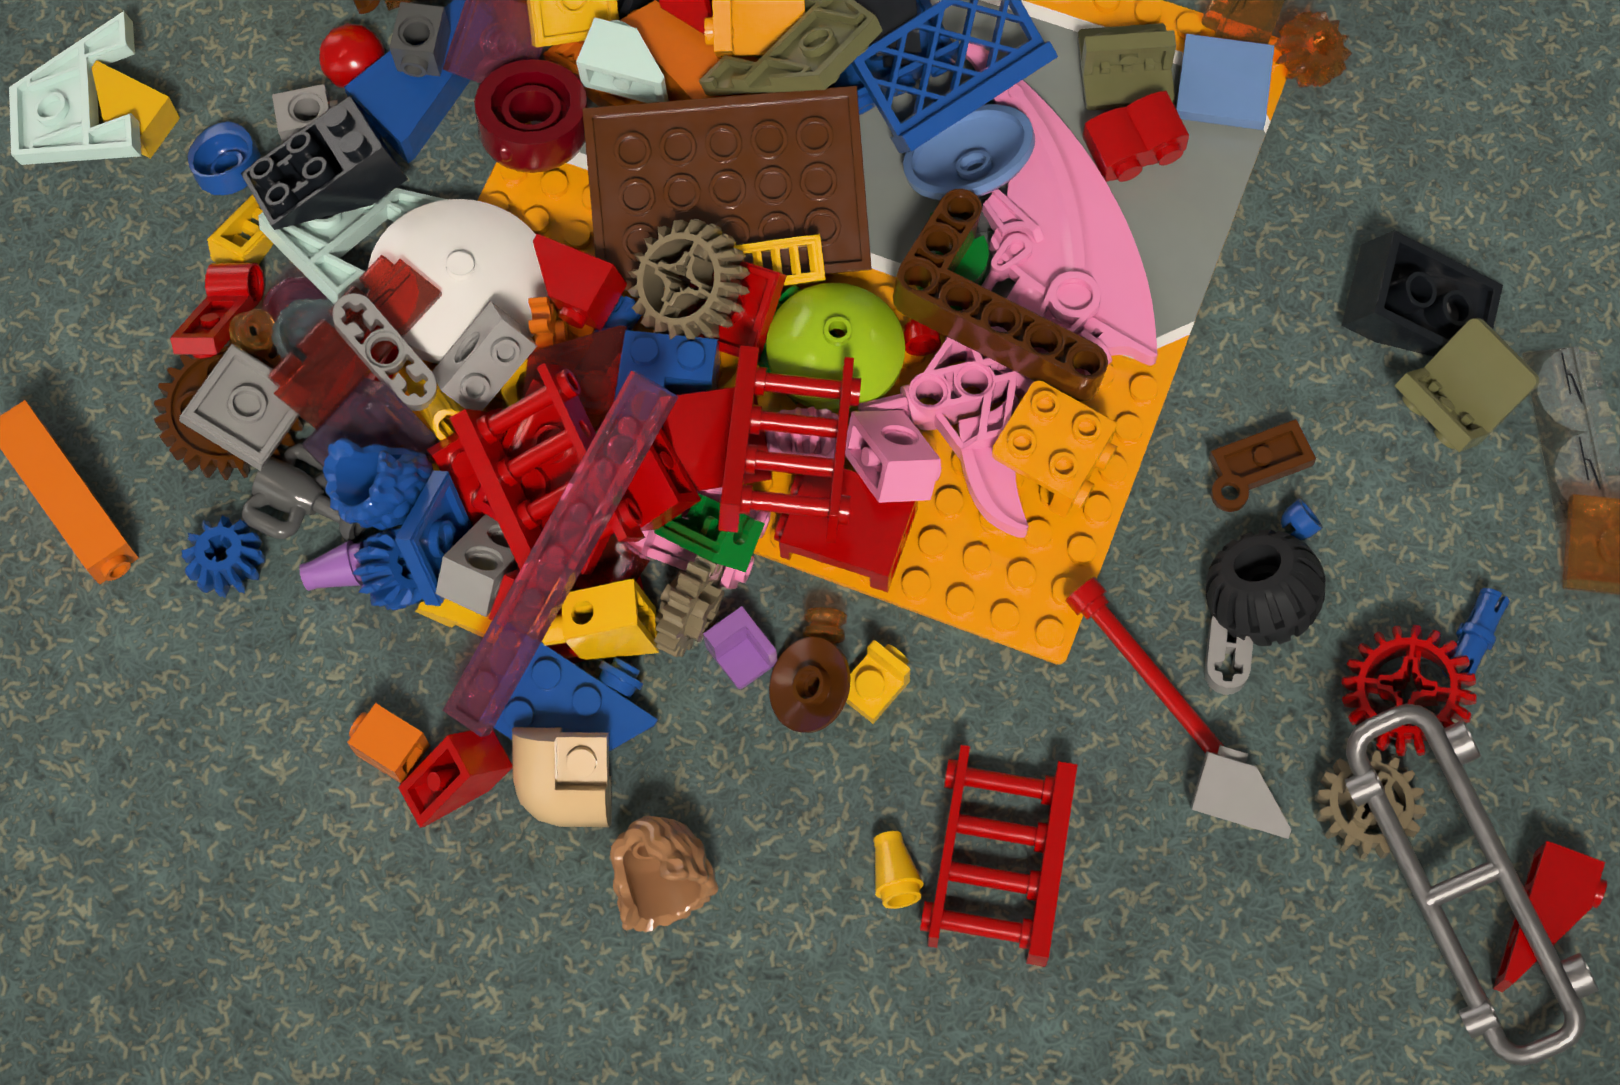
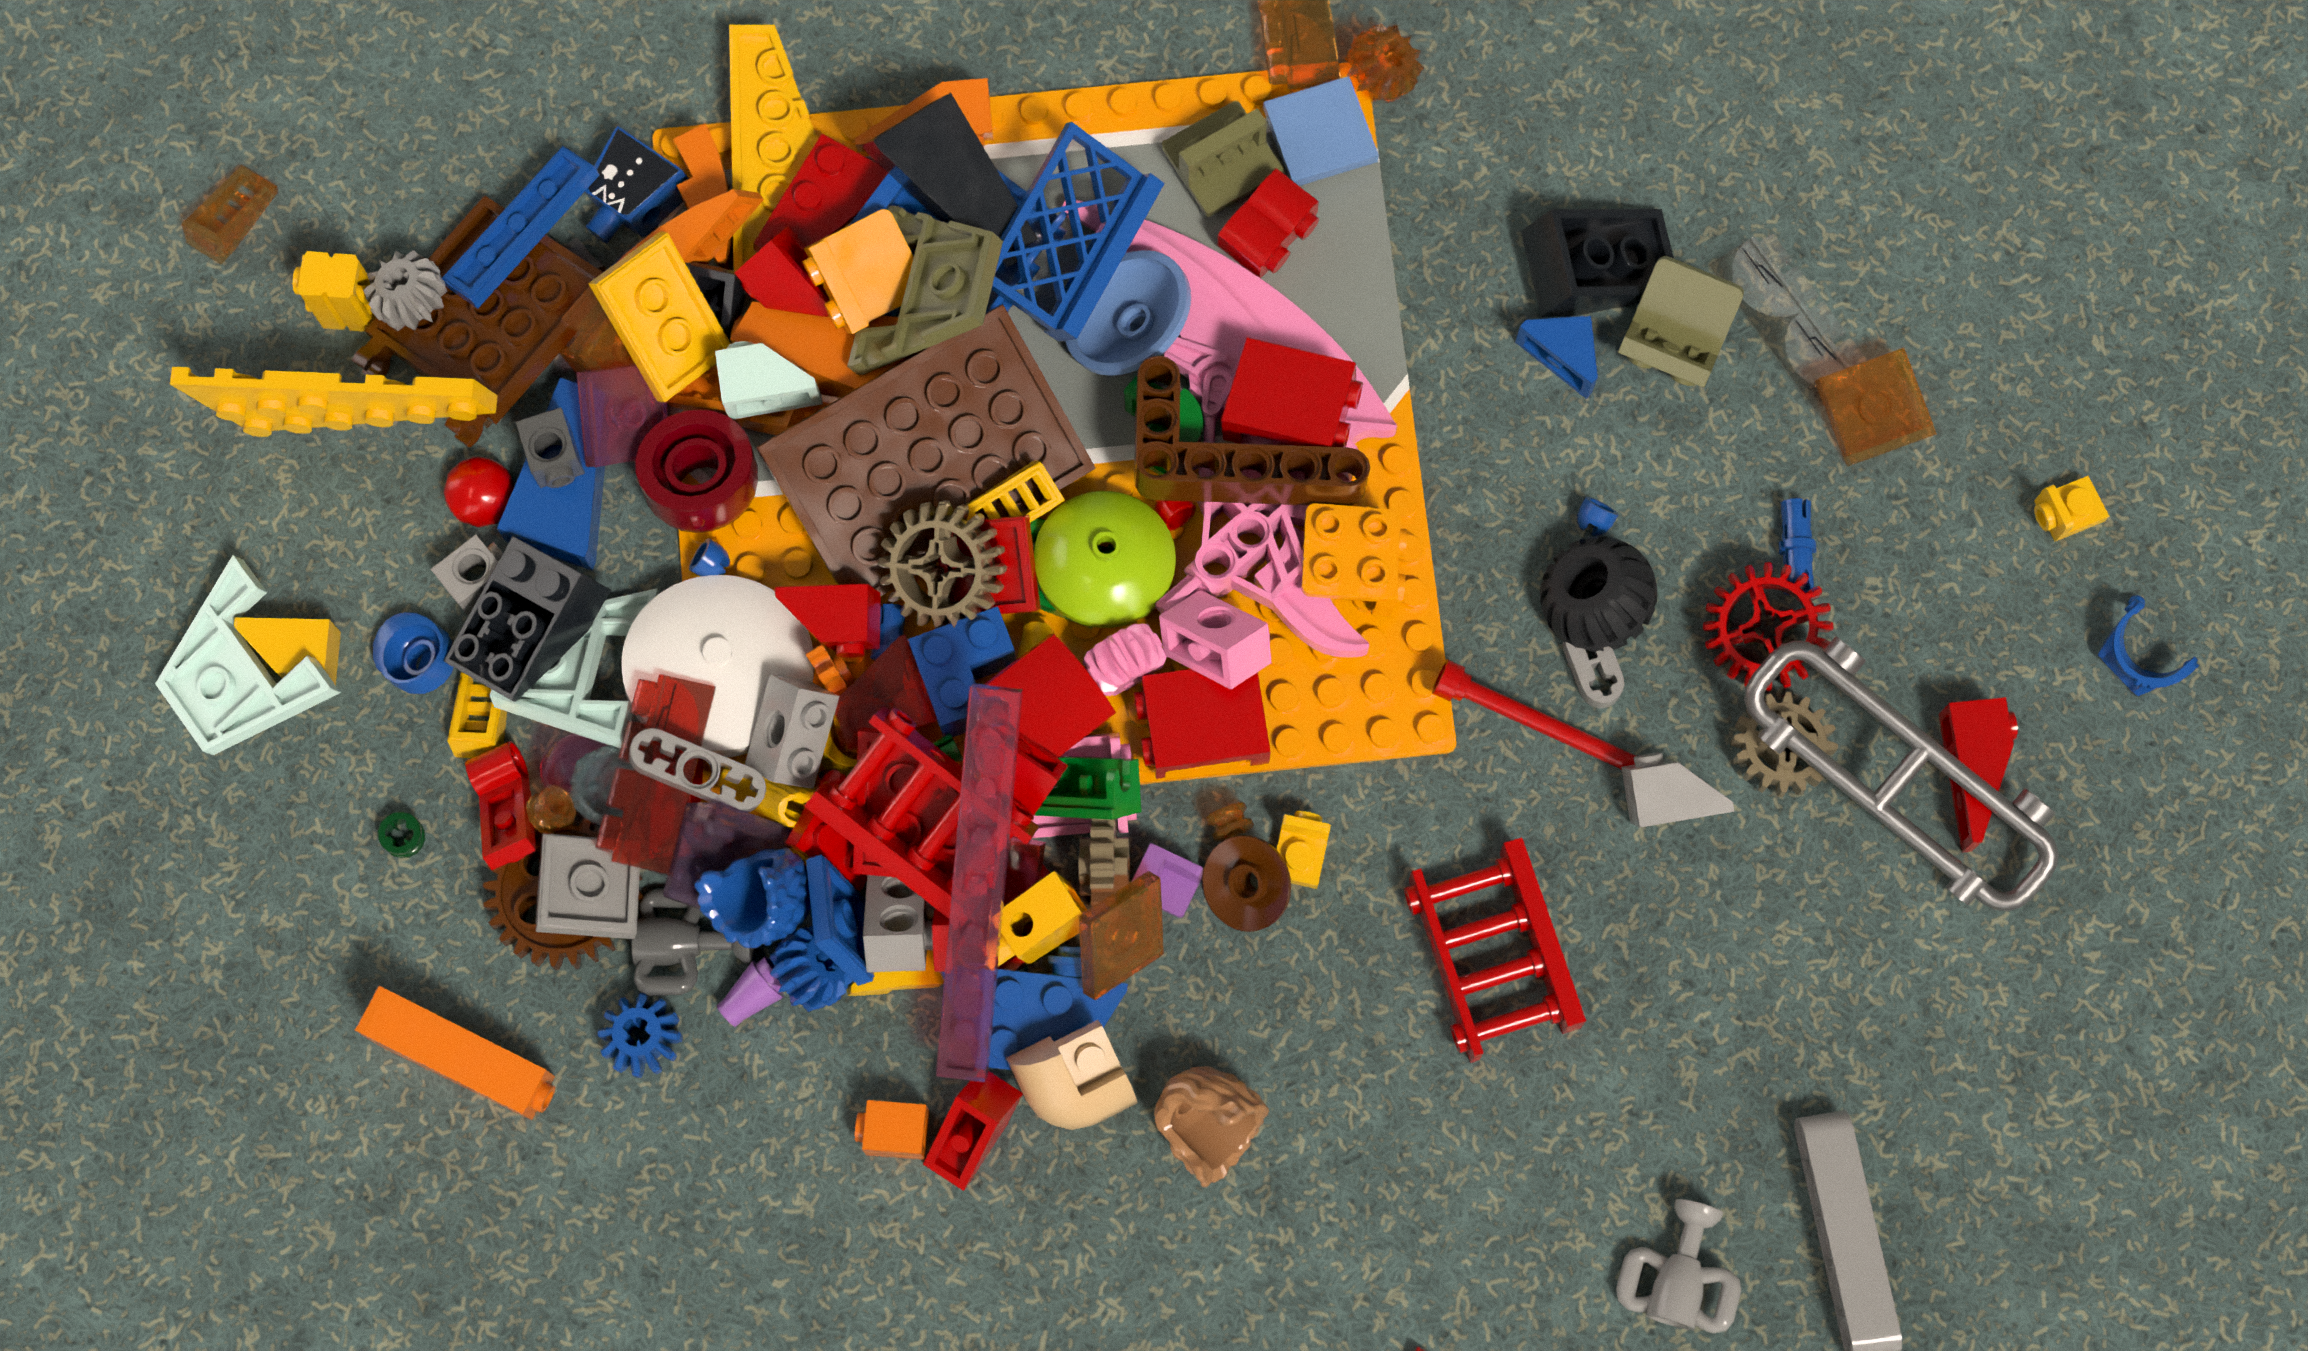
camera: 30 degrees left, 5 degrees up
(131, 313) = (390, 845): none -> dark green bush
(504, 194) = (709, 559): none -> blue hinge
(669, 670) = (1121, 935): none -> clear orange tile
(745, 458) = (1095, 711): red fence -> none
(895, 873) = (1411, 1013): yellow cone -> none
(1071, 281) = (1290, 396): none -> red panel
(1258, 462) = (1532, 479): reddish brown hinge -> none
(1346, 360) = (1564, 348): none -> blue slope

